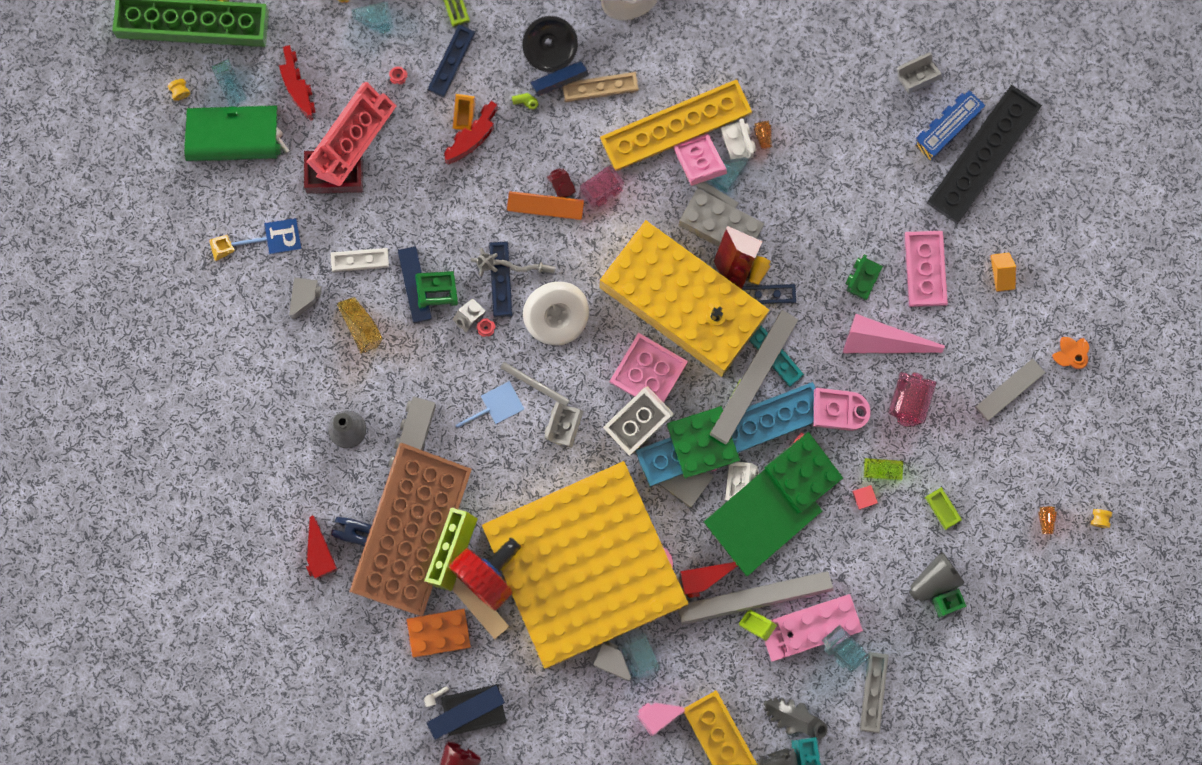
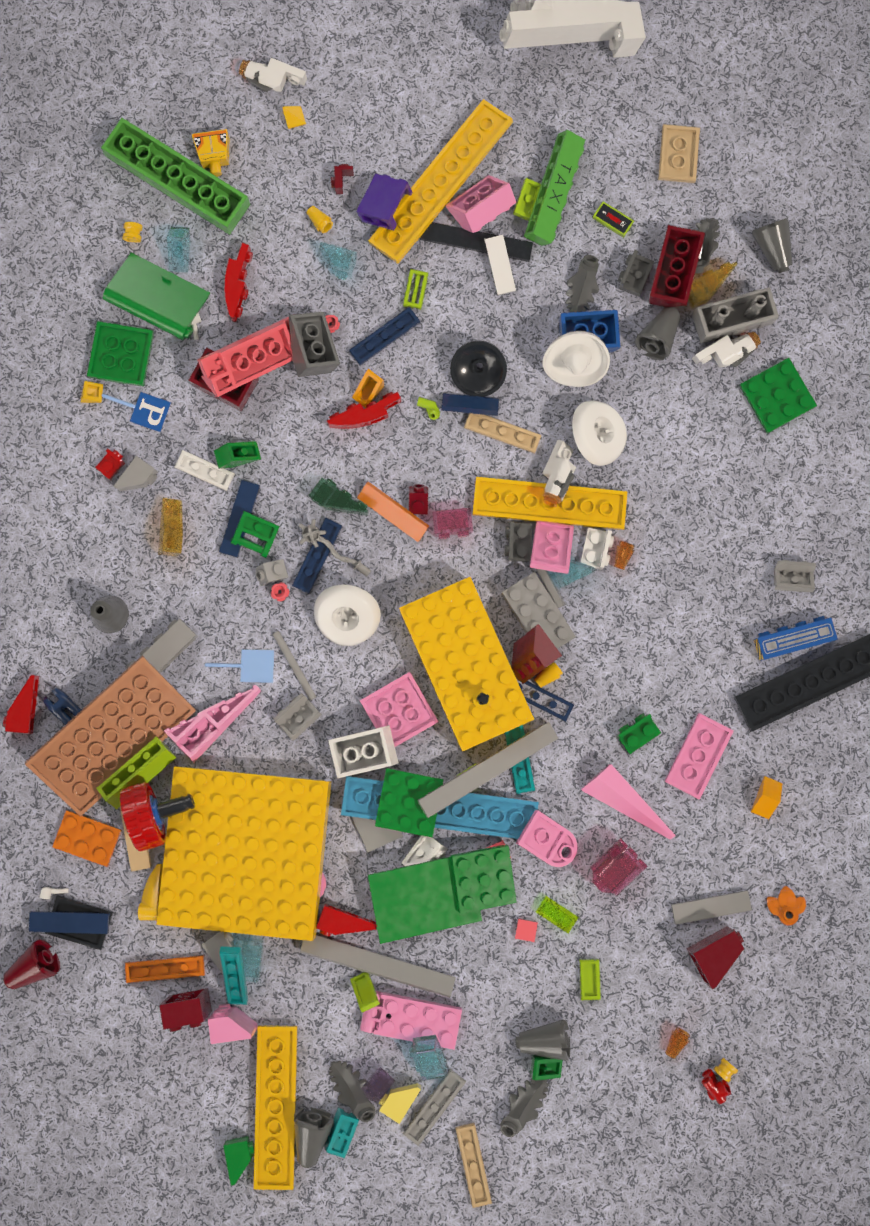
camera: 30 degrees right, 5 degrees up
(228, 199) = (120, 354): none -> green plate
(273, 298) = (110, 464): none -> red bracket
(381, 230) = (237, 454): none -> green slope
(395, 100) = (312, 344): none -> dark grey slope
(484, 223) = (332, 499): none -> clear green slope
(485, 486) = (198, 733): none -> bright pink wedge
(525, 651) = (150, 899): none -> yellow piece
(572, 707) = (164, 969): none -> orange tile
(612, 724) = (185, 1009): none -> dark red brick
(637, 672) = (234, 975): none -> teal tile
(669, 172) = (519, 543): none -> dark grey bracket
(671, 94) = (559, 472): none -> white plate
(684, 41) = (599, 432): none -> white hat
(814, 698) = (377, 1085): none -> clear purple brick
(840, 704) = (398, 1101): none -> light yellow slope
(936, 722) = (473, 1165): none -> tan tile
(949, 646) = (524, 1106): none -> dark grey plant
(1037, 425) = (716, 955): none -> dark red slope
(1104, 539) = (715, 1090): none -> red plate

